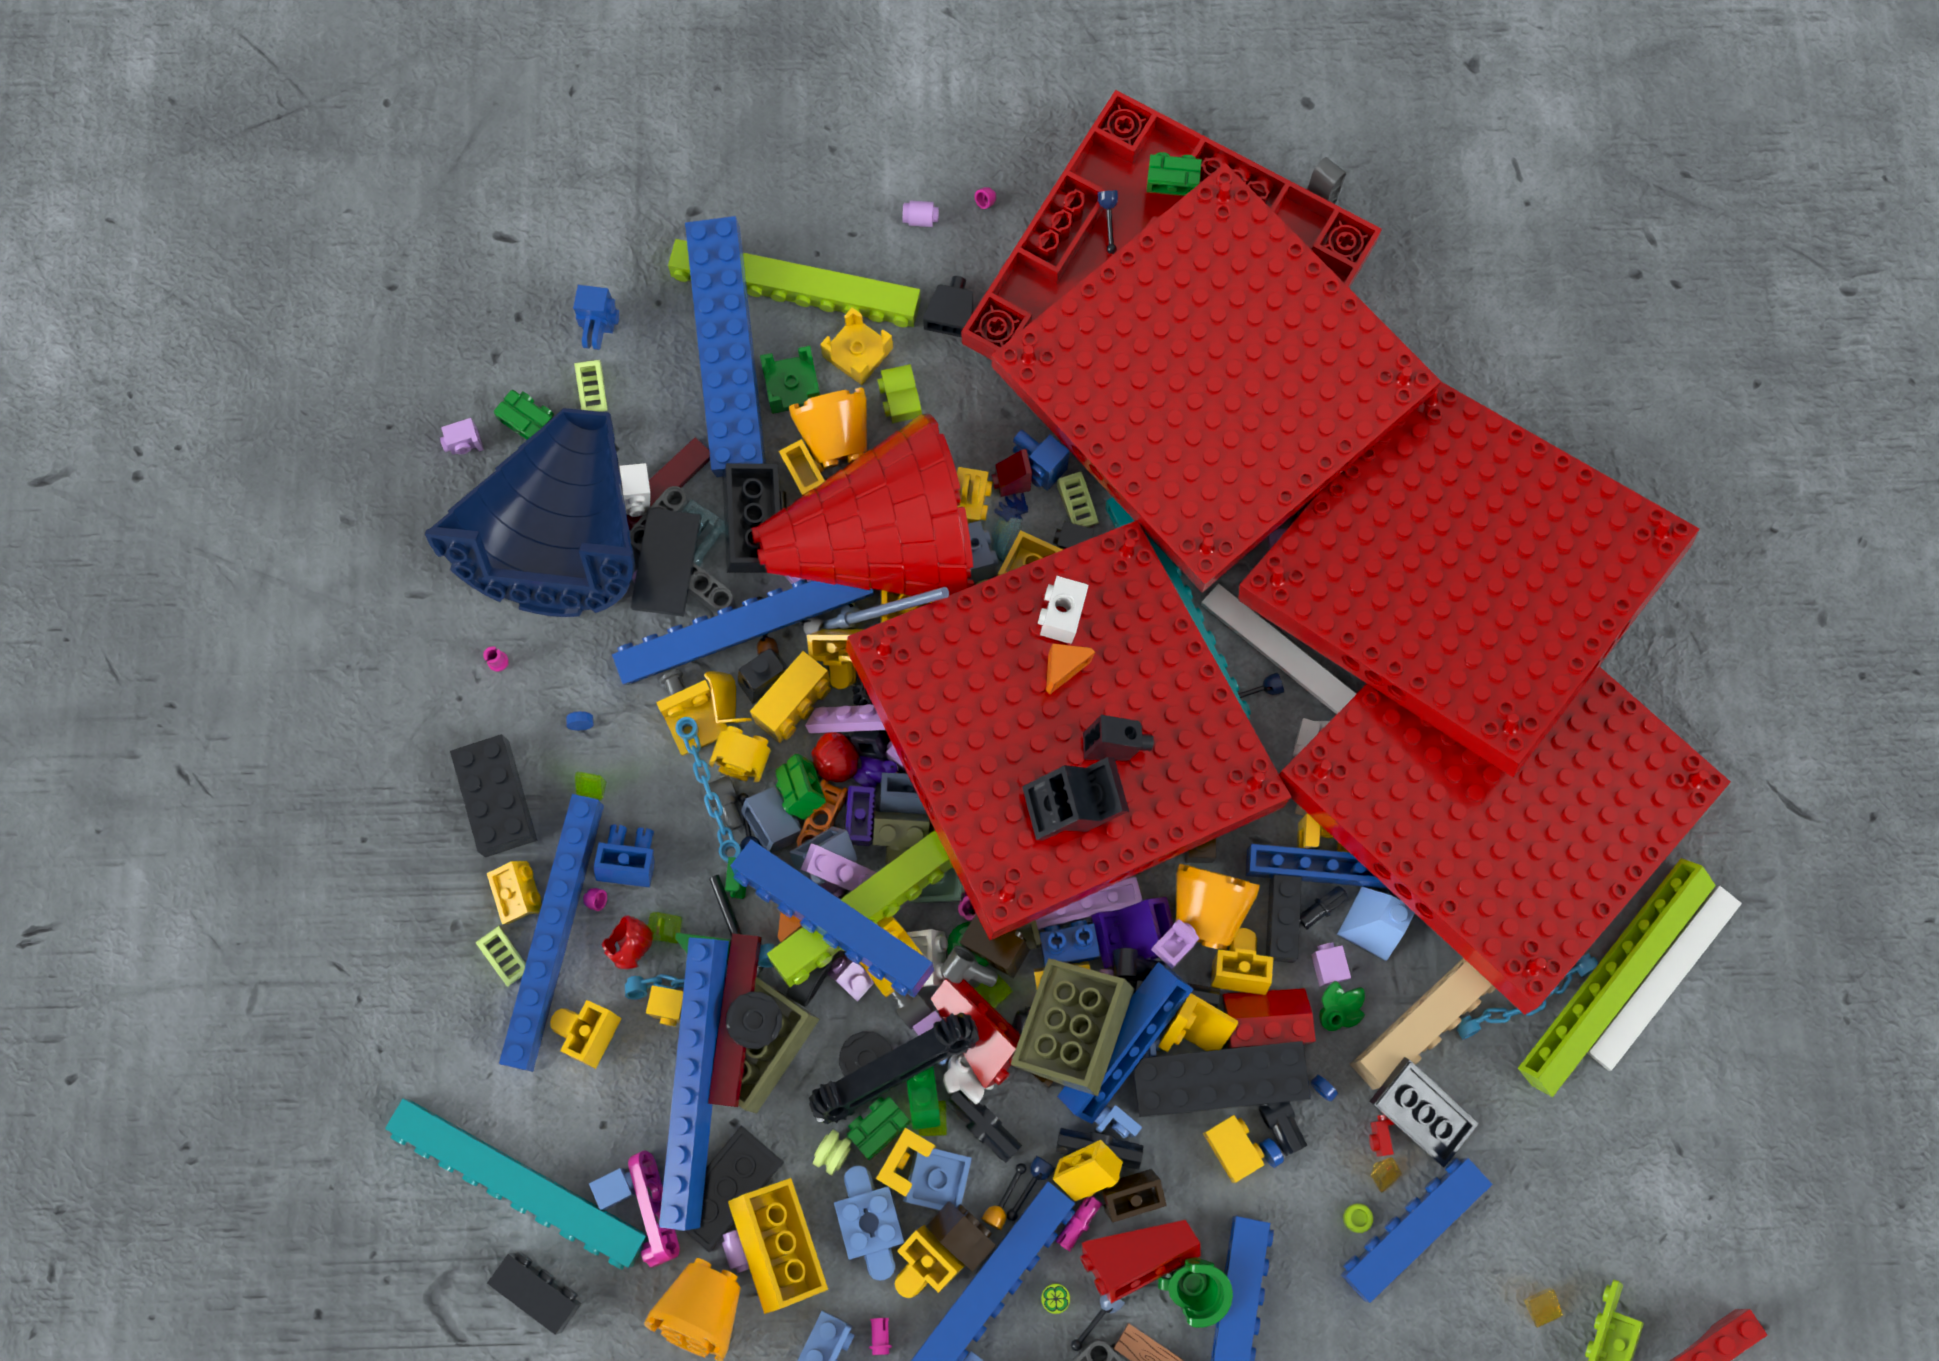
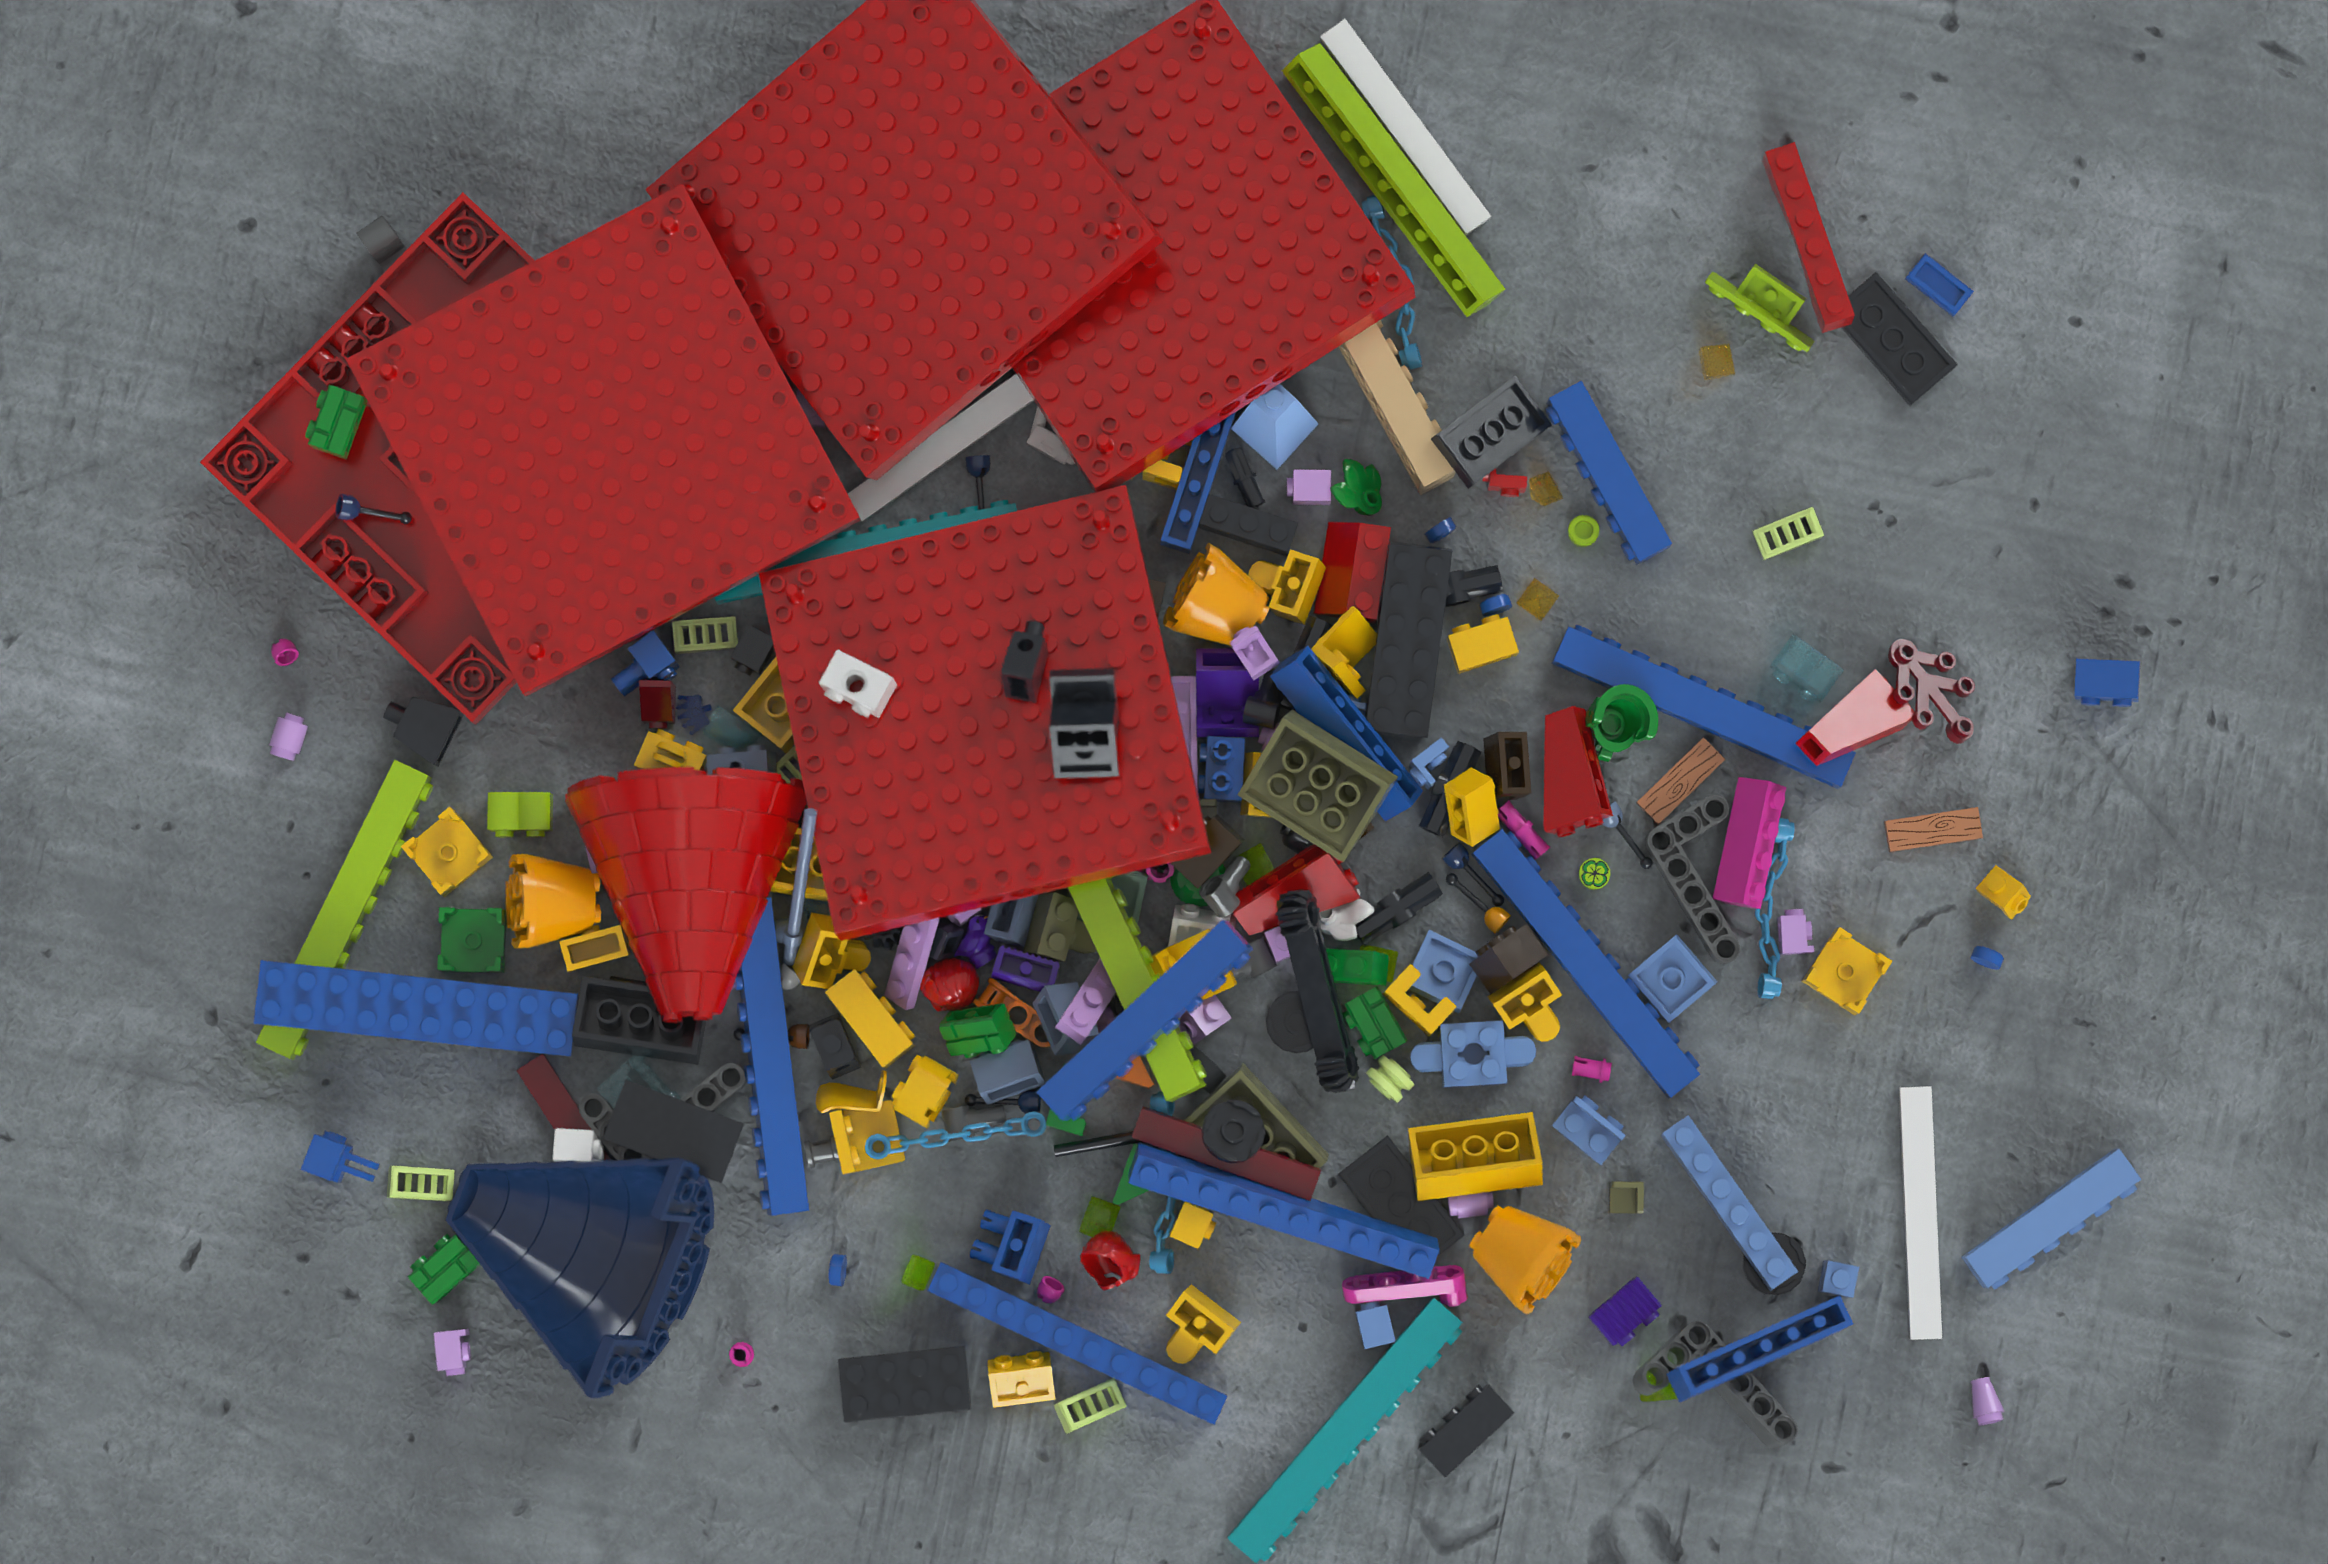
camera: 80 degrees left, 10 degrees up
(1064, 663) = (921, 698): orange slope -> none
(1286, 1190) = (1537, 599): none -> clear yellow slope

